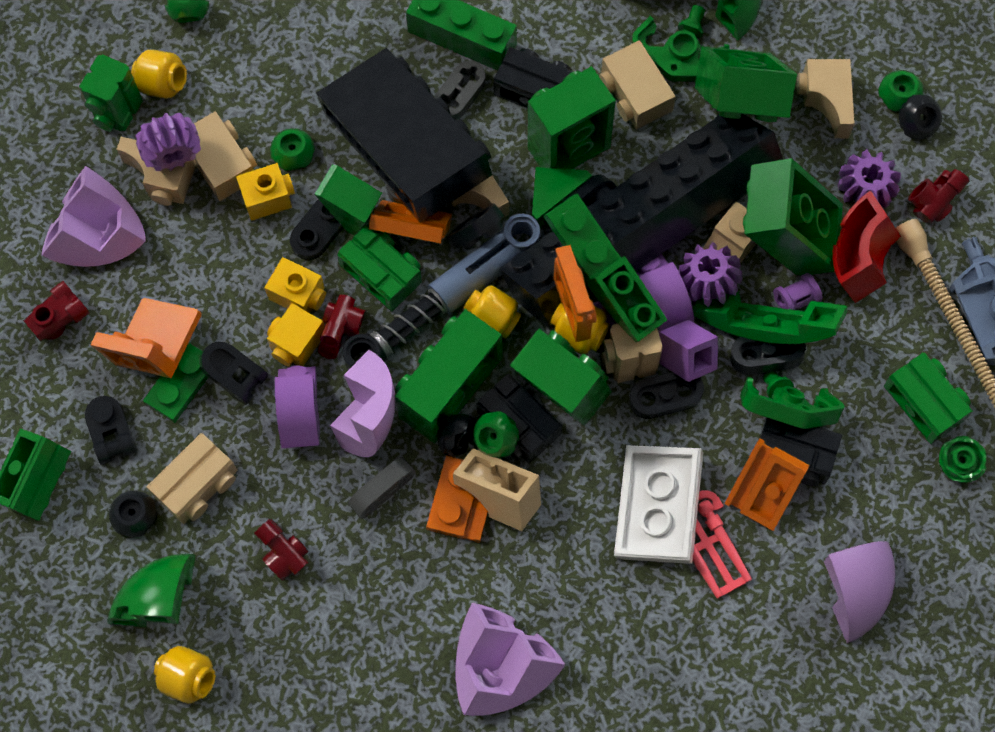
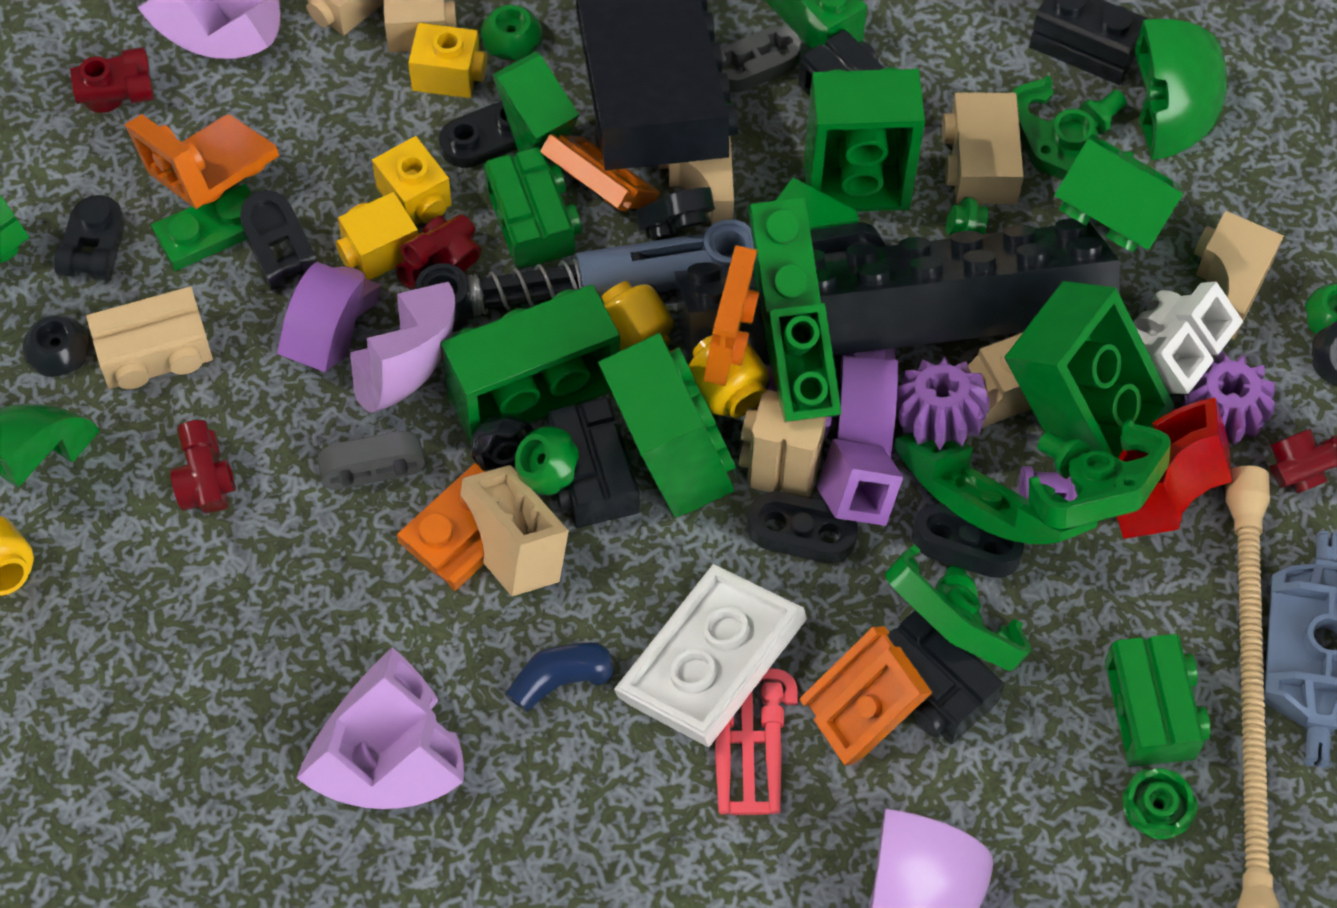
camera: 25 degrees right, 10 degrees down
(573, 559) = (559, 667): none -> dark blue arm
(653, 141) = (967, 217): none -> green plate
(827, 153) = (1186, 332): none -> white legs
(844, 282) = (1101, 481): none -> green piece

